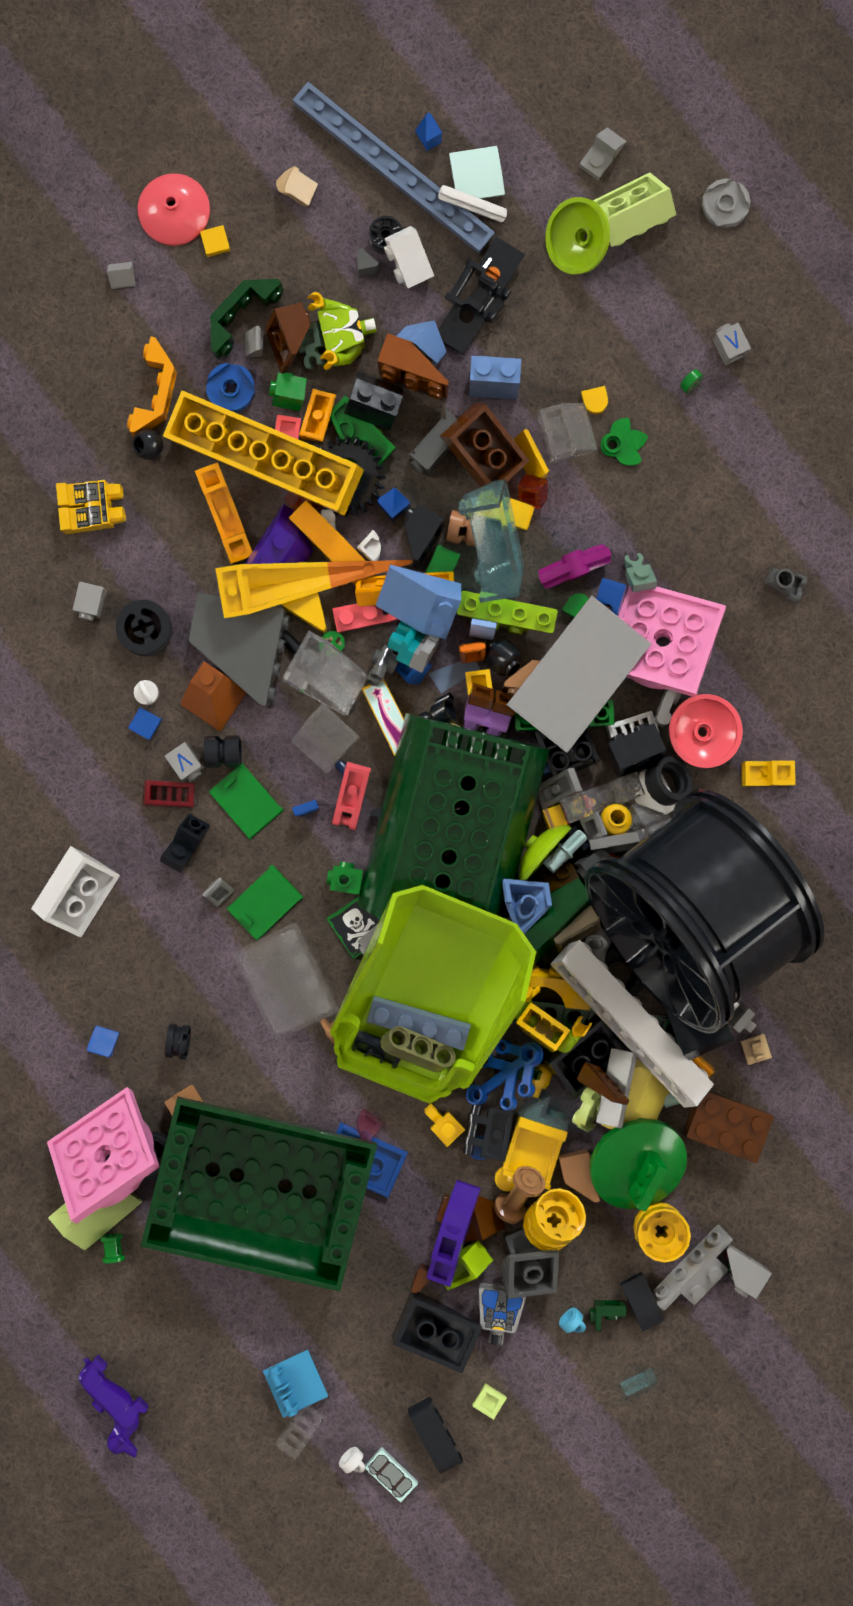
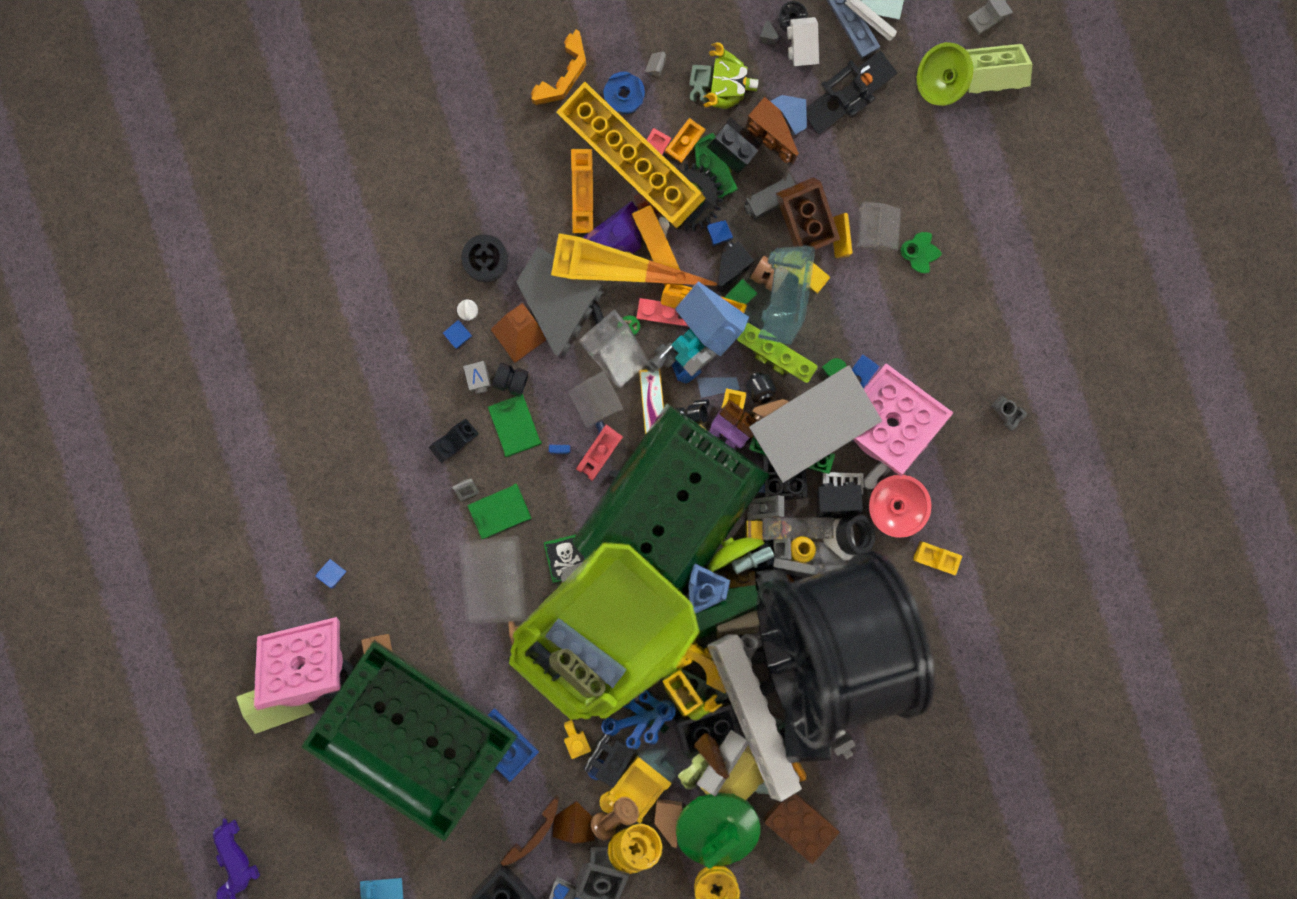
camera: 20 degrees right, 0 degrees up
(75, 892) = (352, 447): white slope -> none
(89, 506) = (477, 145): yellow hips -> none
(89, 601) = (449, 221): light grey brick -> none
(112, 1248) = (277, 740): green bush -> none
(147, 444) = (542, 113): black piece -> none
(148, 784) = (436, 396): dark red slope -> none
(177, 1041) = (390, 596): black wheel -> none
(263, 289) = (680, 25): dark green slope -> none
(286, 332) = (685, 65): reddish brown slope -> none
(288, 391) = (668, 112): green brick -> none
(309, 610) = (620, 292): yellow slope -> none
(345, 878) = (570, 516): green brick -> none
(367, 1124) = (515, 718): clear pink tile -> none
(371, 547) = (688, 260): white tile -> none
(453, 1233) = (551, 828): dark purple slope -> none
(471, 1264) = (550, 858): lime slope -> none
(472, 652) = (737, 374): orange slope -> none
(482, 629) = (752, 359): light blue slope -> none
(494, 377) = (836, 162): medium blue brick -> none
(533, 491) = (833, 264): clear red slope -> none
(544, 1080) = (669, 734): yellow cylinder -> none
(574, 565) = (844, 335): magenta piece -> none
(595, 399) = (910, 209): yellow tile -> none
(638, 575) = (893, 363): sand green plate -> none
(691, 381) = (993, 222): green tile -> none
(722, 210) = (1069, 96): light grey tile -> none
(731, 343) = (1036, 204): light grey brick -> none
(755, 1049) = (845, 773): tan tile -> none

